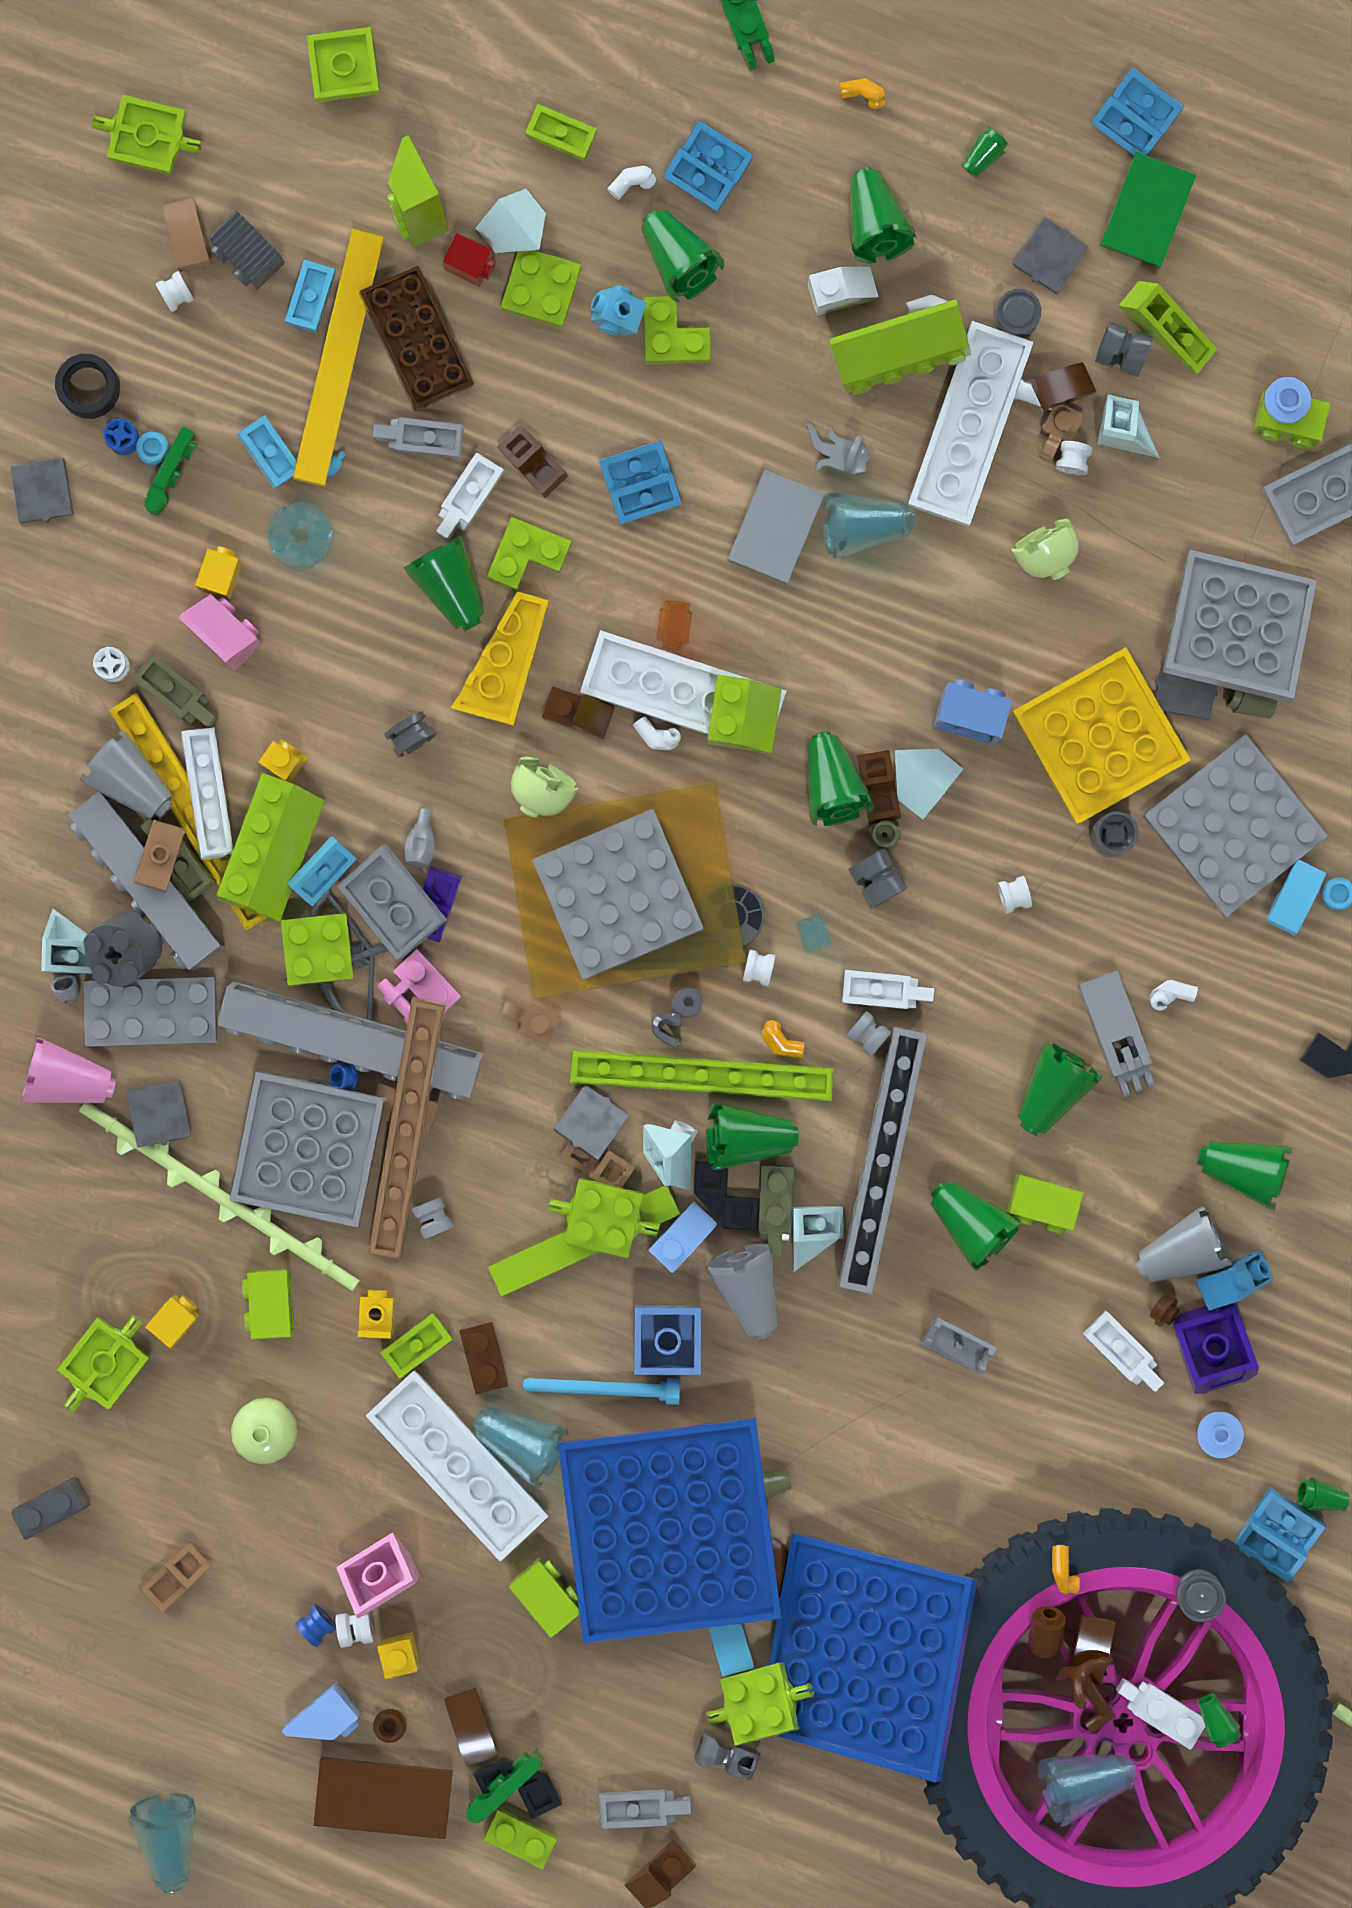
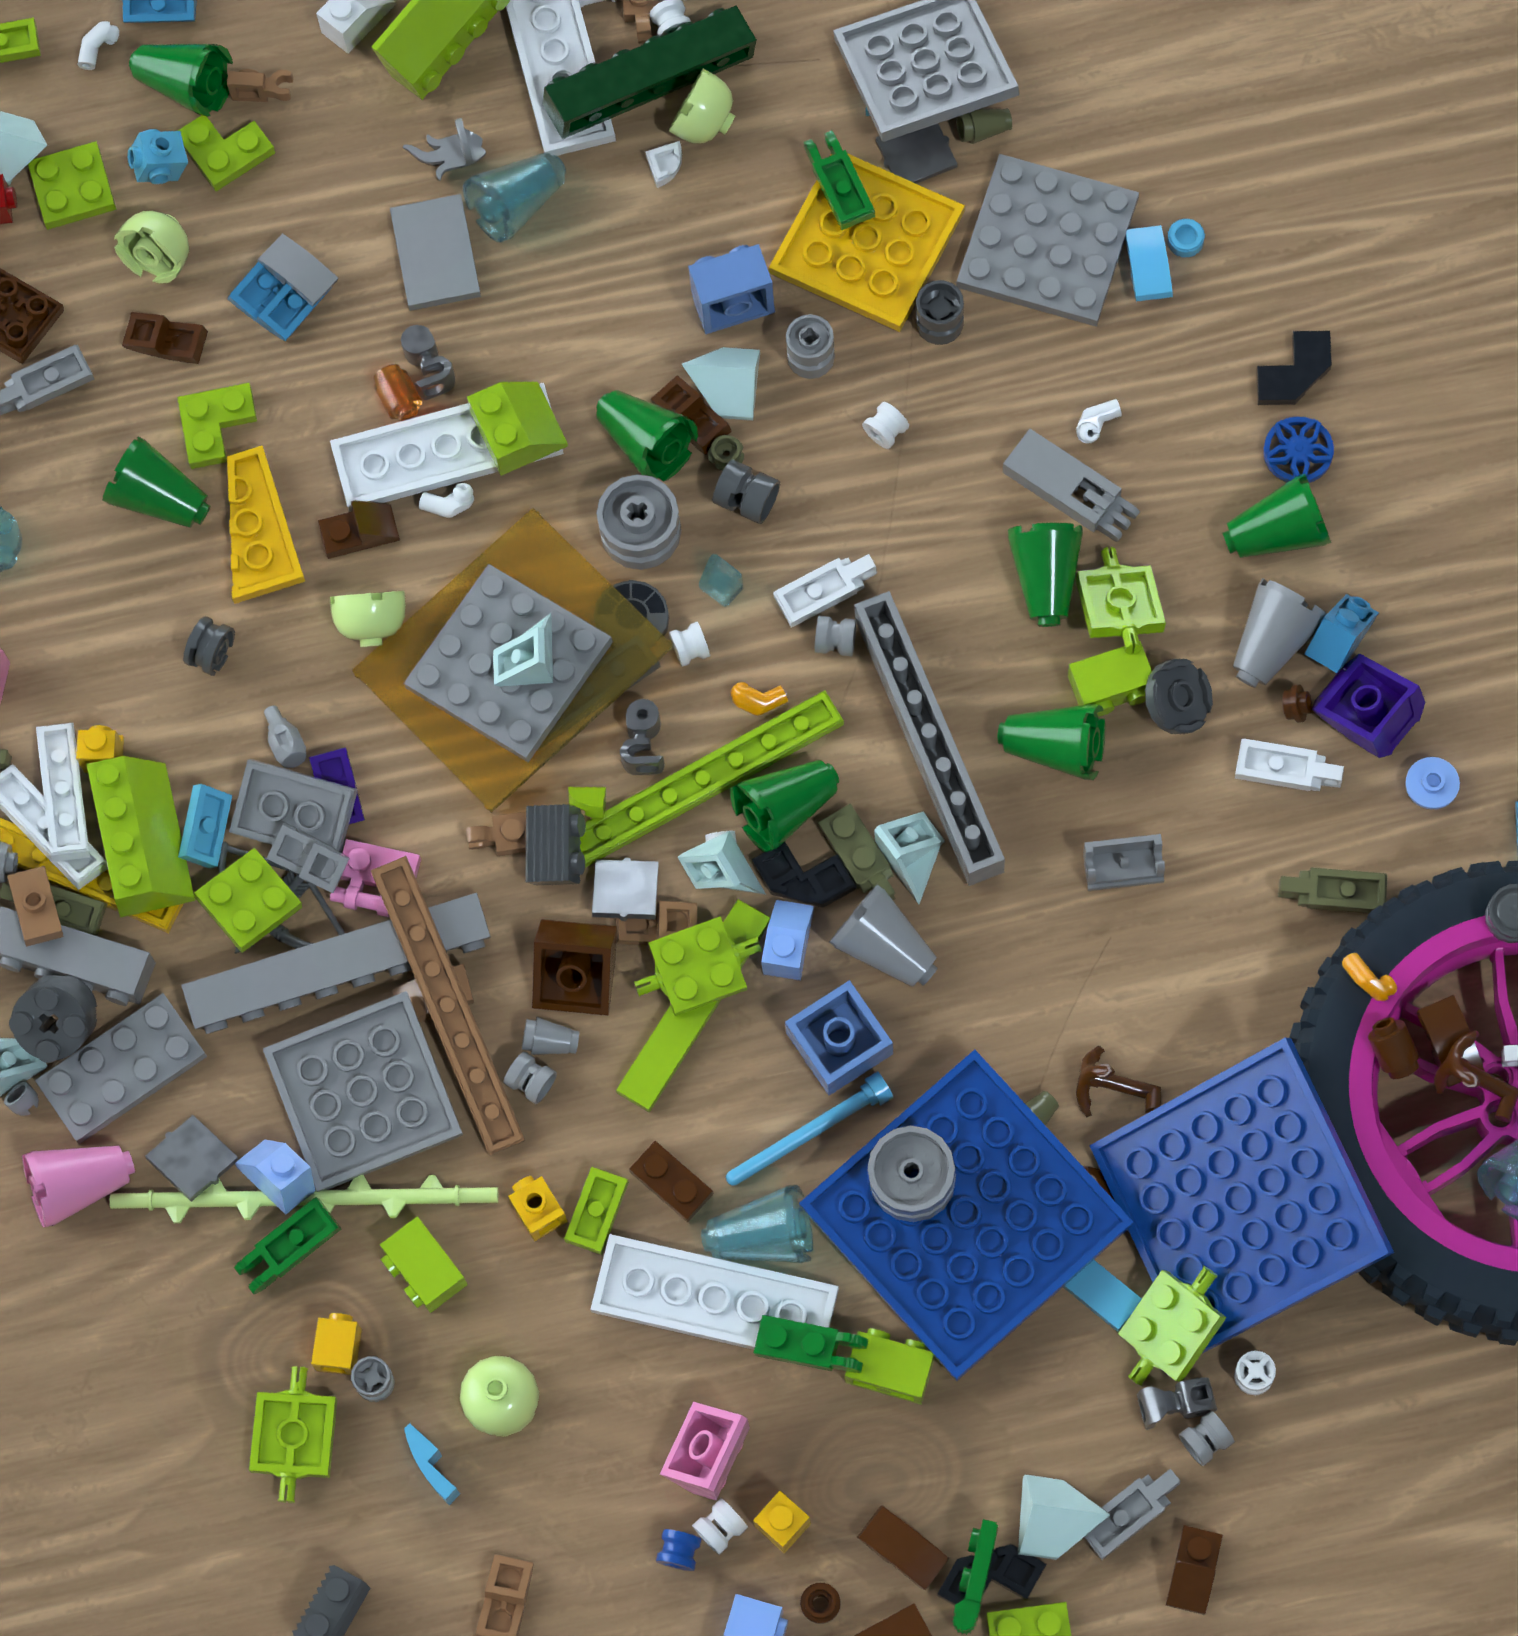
camera: 30 degrees left, 15 degrees down
(178, 1364) = (370, 1372): none -> light grey wheel
(184, 1439) = (426, 1456): none -> medium azure slope
(188, 1225) = (289, 1244): none -> green hinge
(208, 1168) = (278, 1174): none -> light blue slope
(235, 776) = (62, 792): none -> white tile
(344, 1076) = (352, 999): blue plate -> none
(381, 947) = (308, 857): none -> light grey slope
(464, 1196) = (549, 1038): none -> light grey cone
(468, 495) = (123, 402): white hinge -> none
(496, 1547) = (806, 1344): none -> green hinge
(517, 1156) = (574, 967): none -> reddish brown slope
(560, 1058) = (554, 845): none -> dark grey brick
(571, 382) = (153, 244): none -> yellowish green cylinder
(589, 1777) = (1054, 1517): none -> light aqua slope
(608, 1037) = (589, 799): none -> lime tile
(631, 904) = (526, 658): none -> light aqua slope
(640, 1506) = (902, 1152): none -> light grey wheel
(663, 475) = (298, 269): none -> light grey slope
(715, 600) = (422, 351): none -> flat silver leg
(726, 298) = (255, 87): none -> medium nougat plate
(730, 1795) = (1206, 1438): none -> light grey wheel
(783, 830) = (639, 522): none -> light grey wheel
(797, 1778) = (1259, 1367): none -> white wheel
(830, 1490) = (1103, 1076): none -> reddish brown piece
(993, 569) = (664, 162): none -> white tile
(1000, 796) = (810, 346): none -> light grey wheel
(1028, 492) = (648, 71): none -> dark green brick
(1082, 1250) = (1178, 696): none -> dark grey tile
(1091, 1149) = (1120, 601): none -> lime plate
(1096, 1468) = (1336, 889): none -> olive hinge
(1109, 682) = (840, 183): none -> green hinge
(1303, 1117) = (1298, 448): none -> blue wheel

